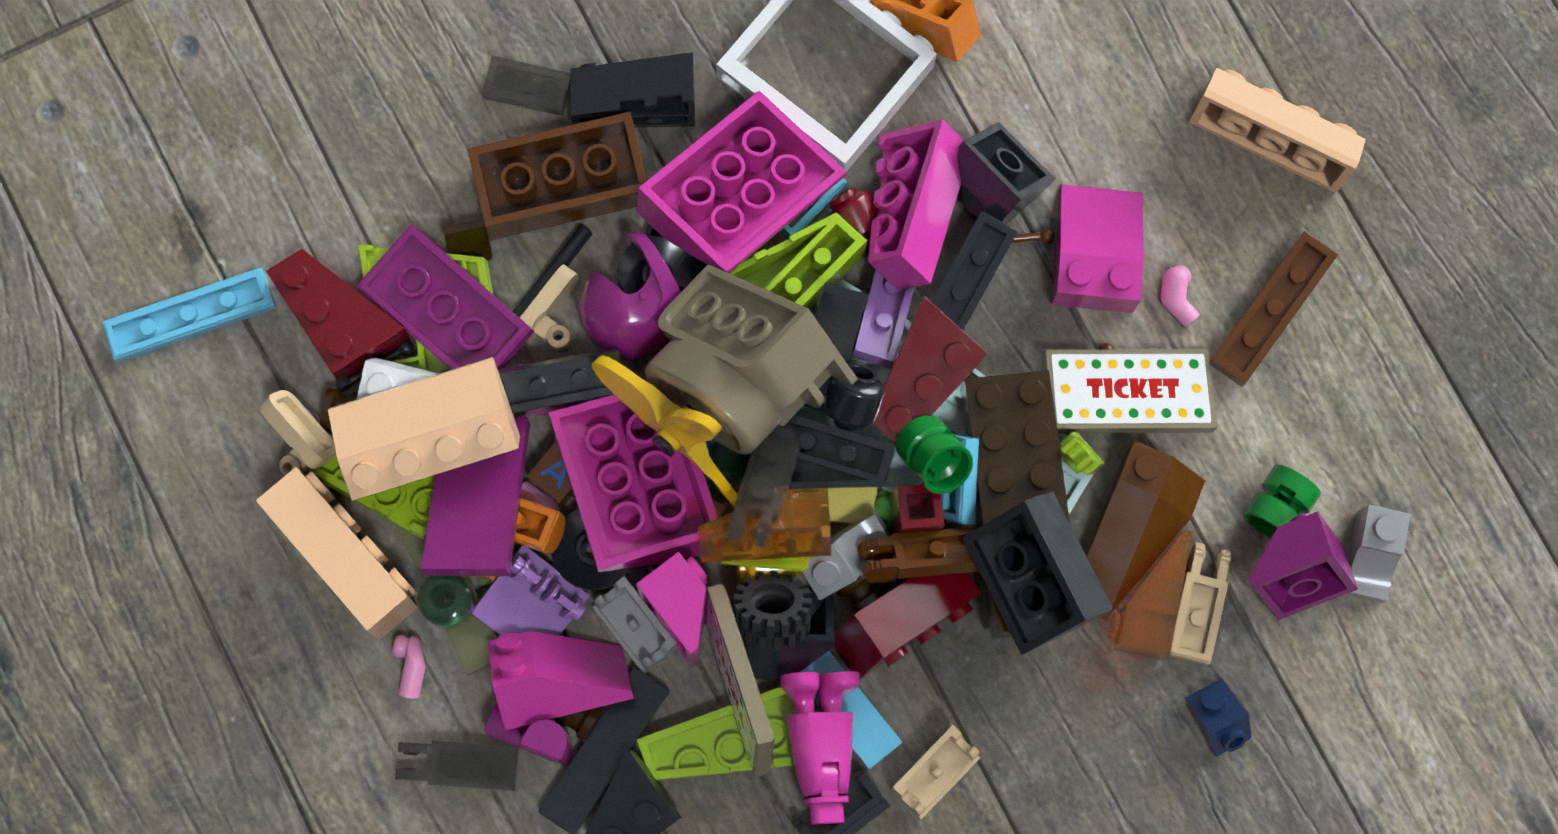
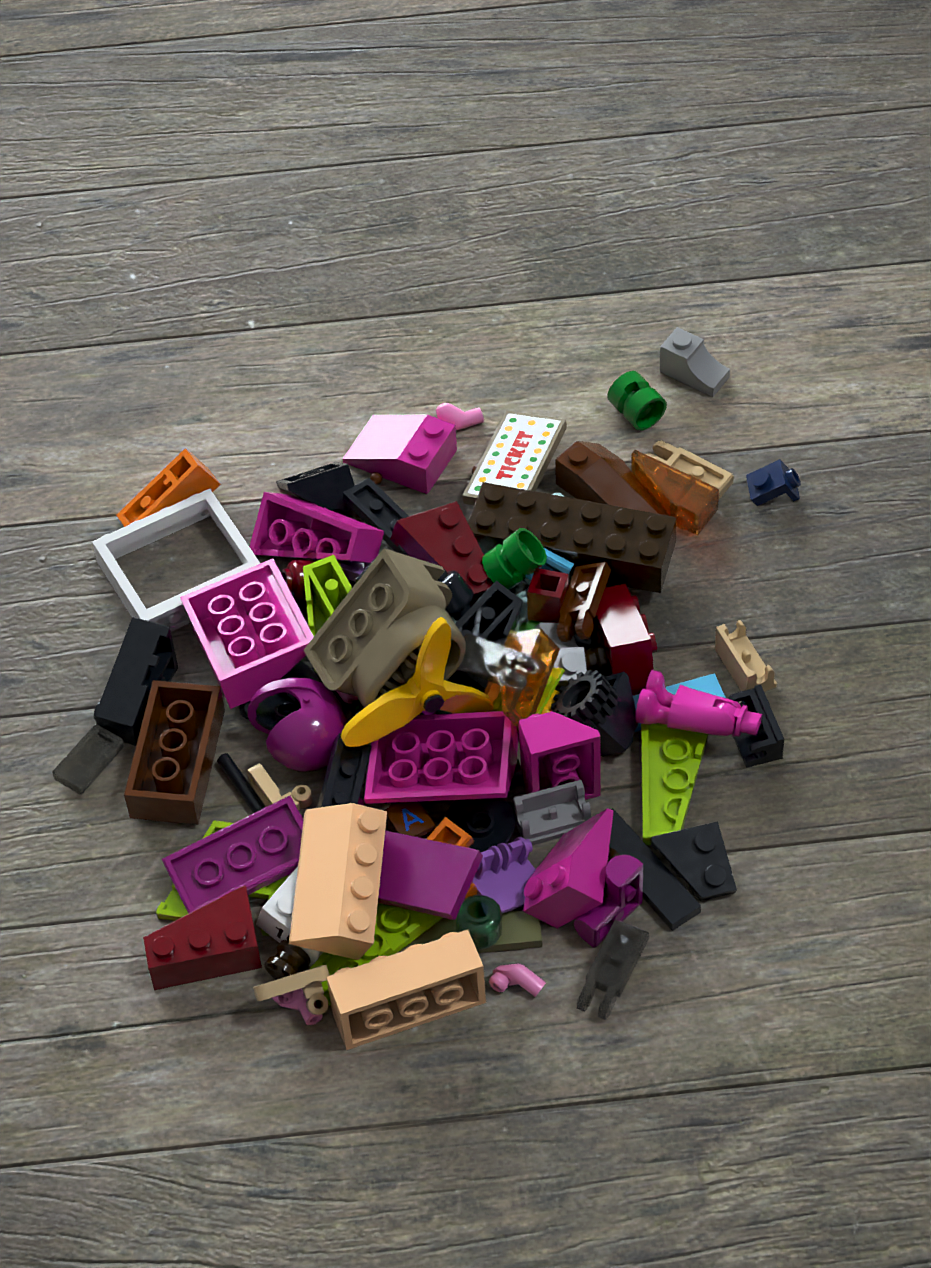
camera: 60 degrees left, 25 degrees down
(188, 315) = (149, 1058): medium azure tile -> none
(404, 348) = (255, 910): black hinge -> none
(468, 239) = (190, 829): dark brown slope -> none
(739, 680) = (647, 738): dark tan tile -> none
(1037, 572) = (630, 521): black slope -> none
(1079, 454) = (553, 484): lime plate -> none
(1273, 309) = (494, 366): reddish brown plate -> none
(1278, 130) = (370, 323): light nougat slope -> none
(1302, 567) = (689, 391): magenta slope -> none

